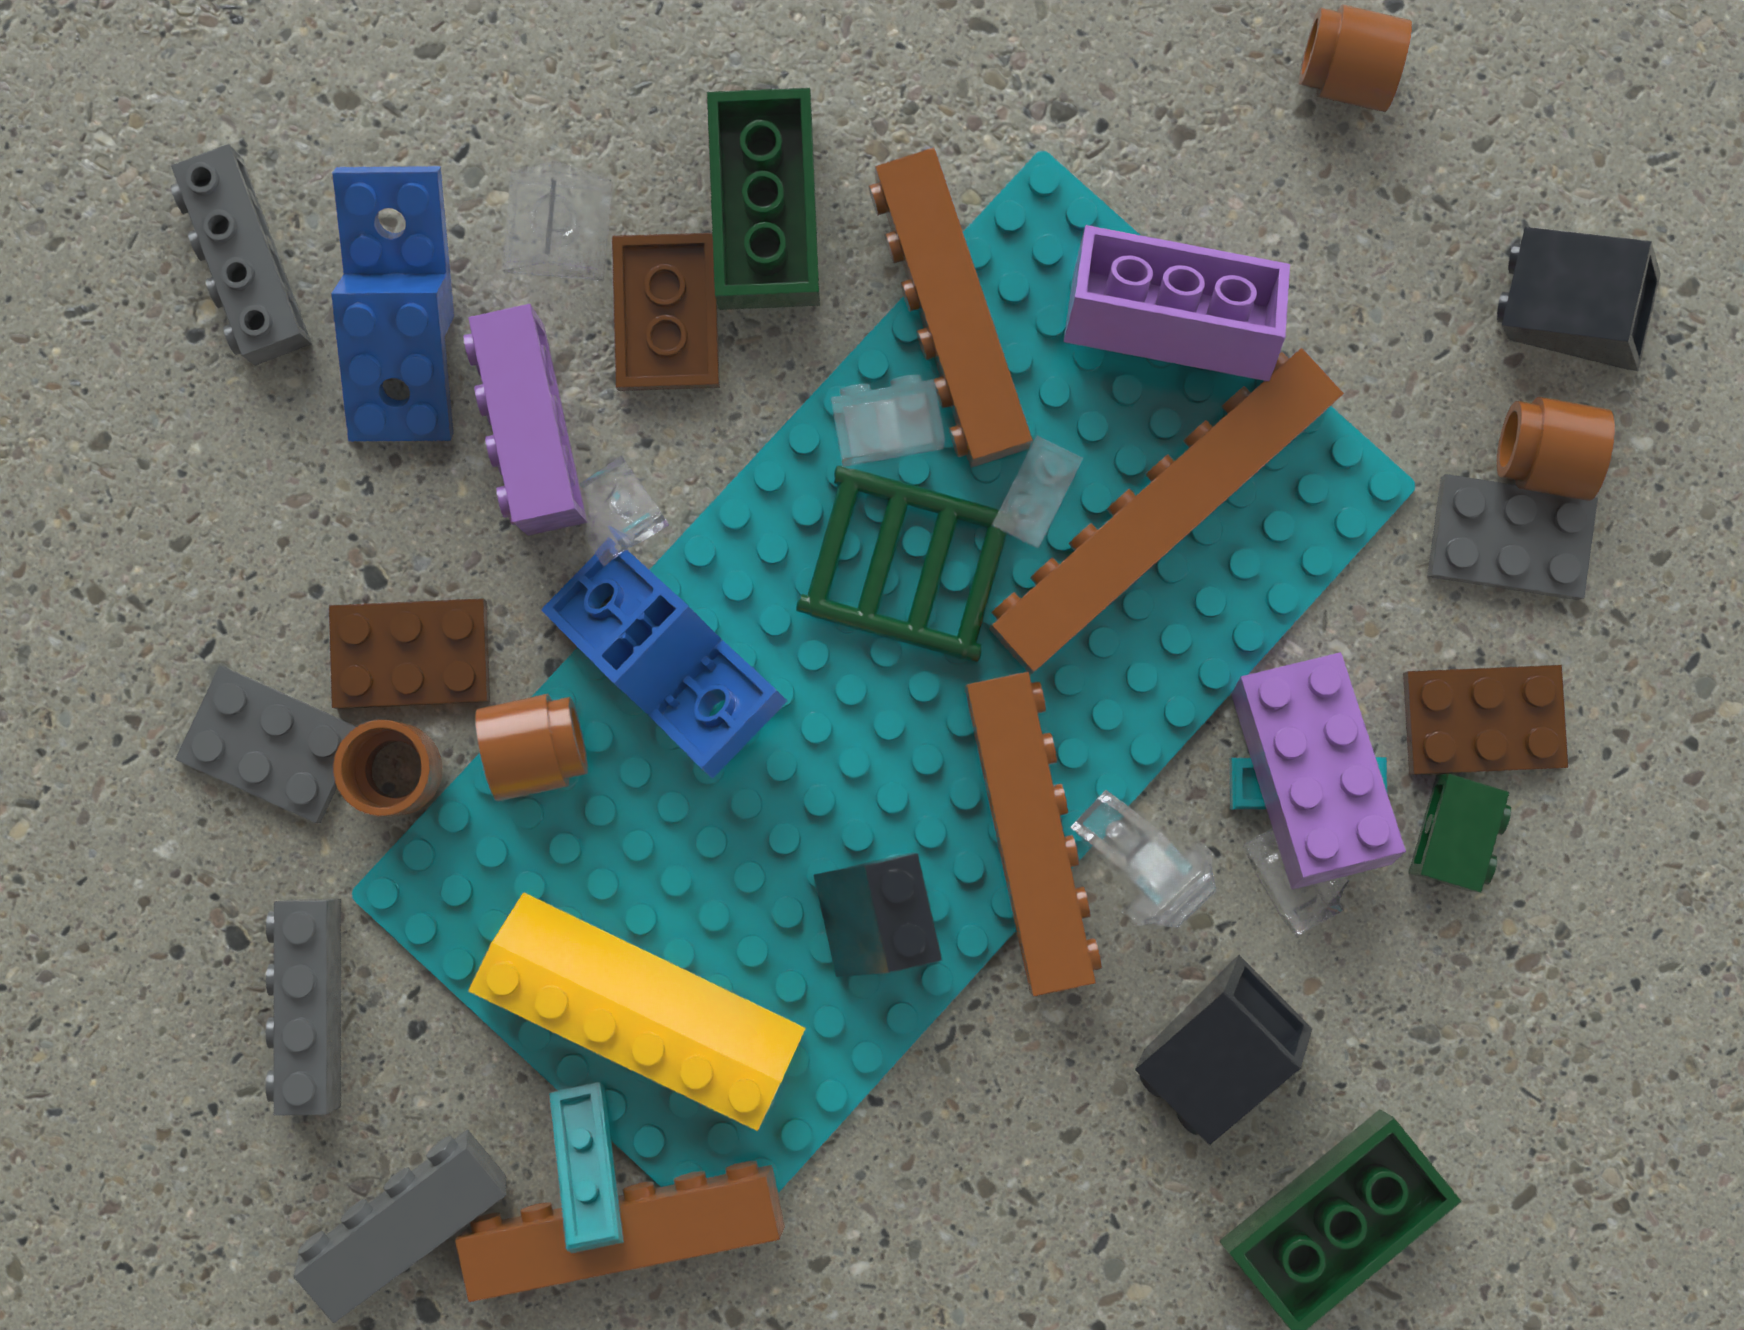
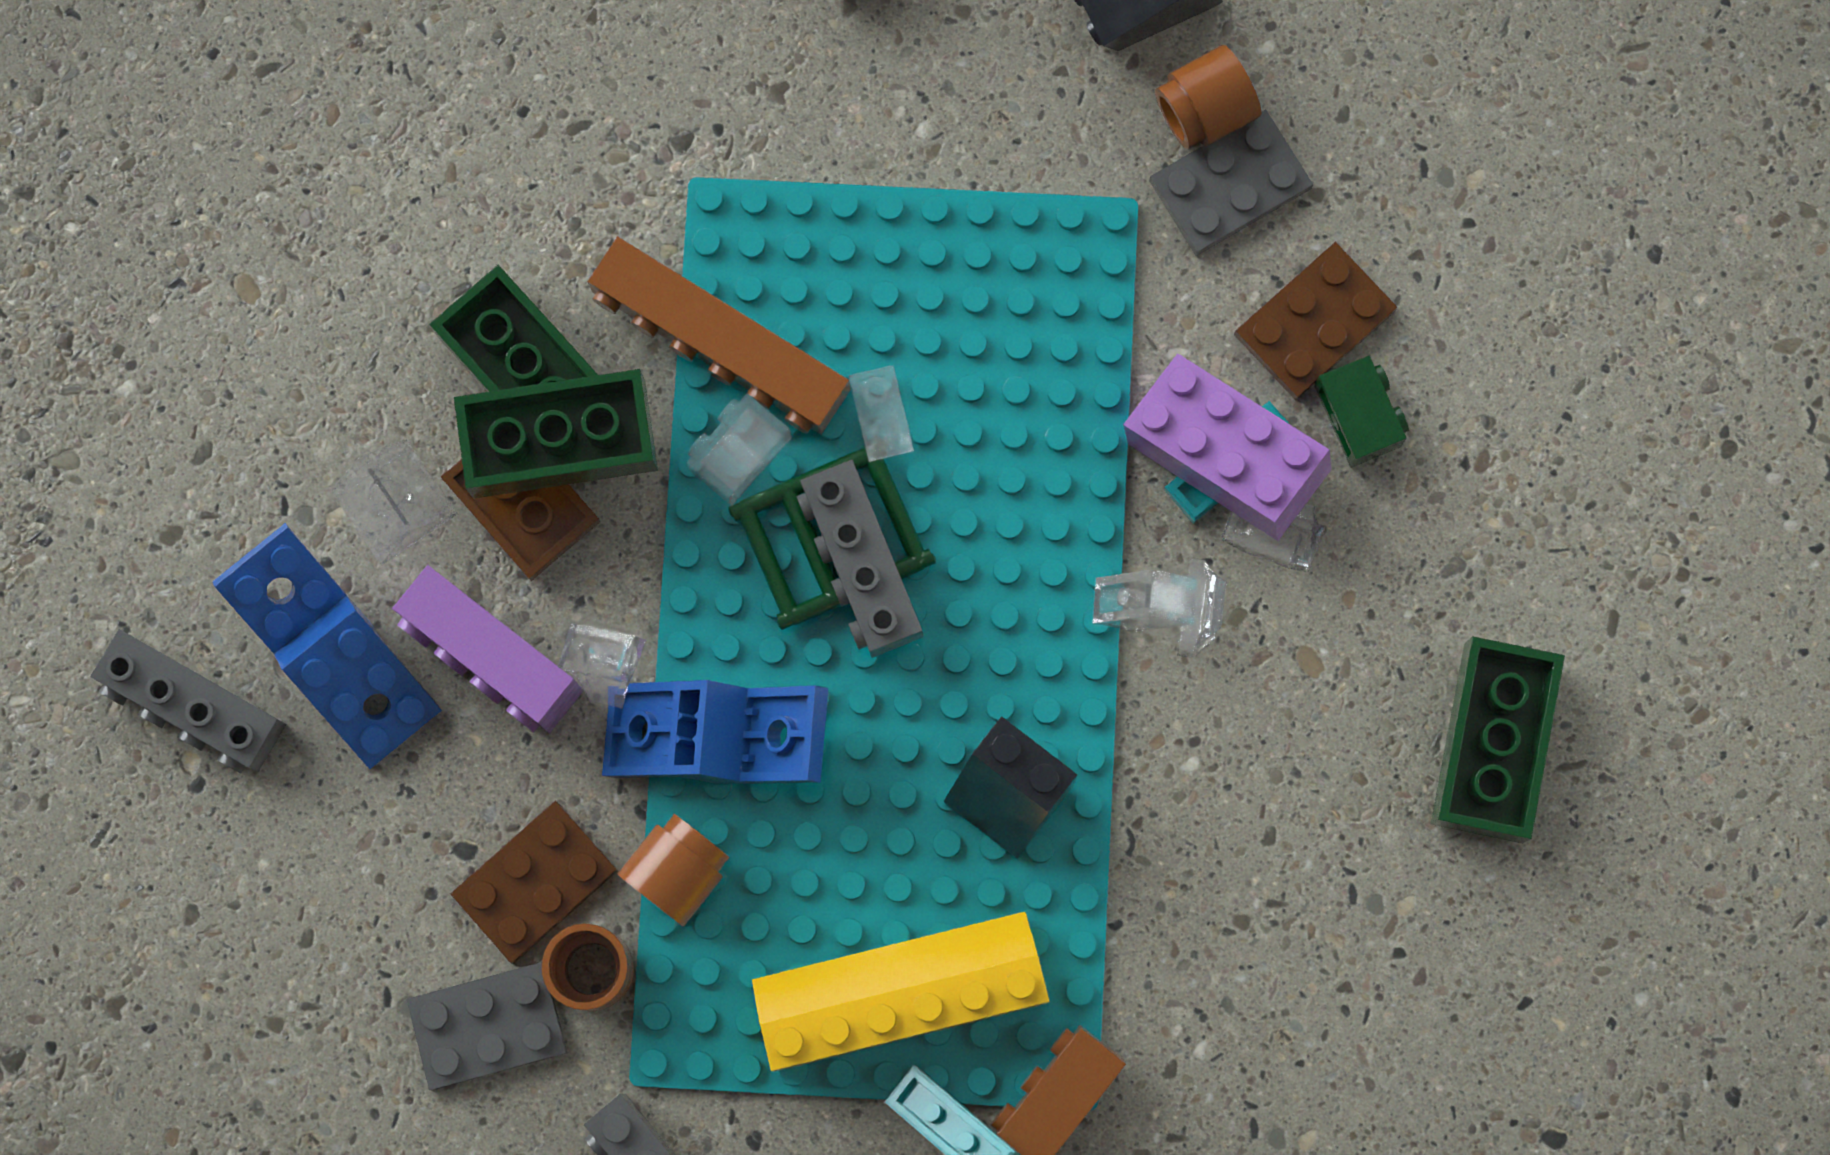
camera: 30 degrees left, 5 degrees down
(734, 278) = (555, 433): none -> dark green brick
(913, 606) = (861, 558): none -> dark grey brick
(1031, 834) = (1068, 648): dark orange brick -> none
(1164, 511) = (978, 357): dark orange brick -> none
(1178, 303) = (871, 208): medium lavender brick -> none
(1225, 1052) = (1325, 690): black slope -> none

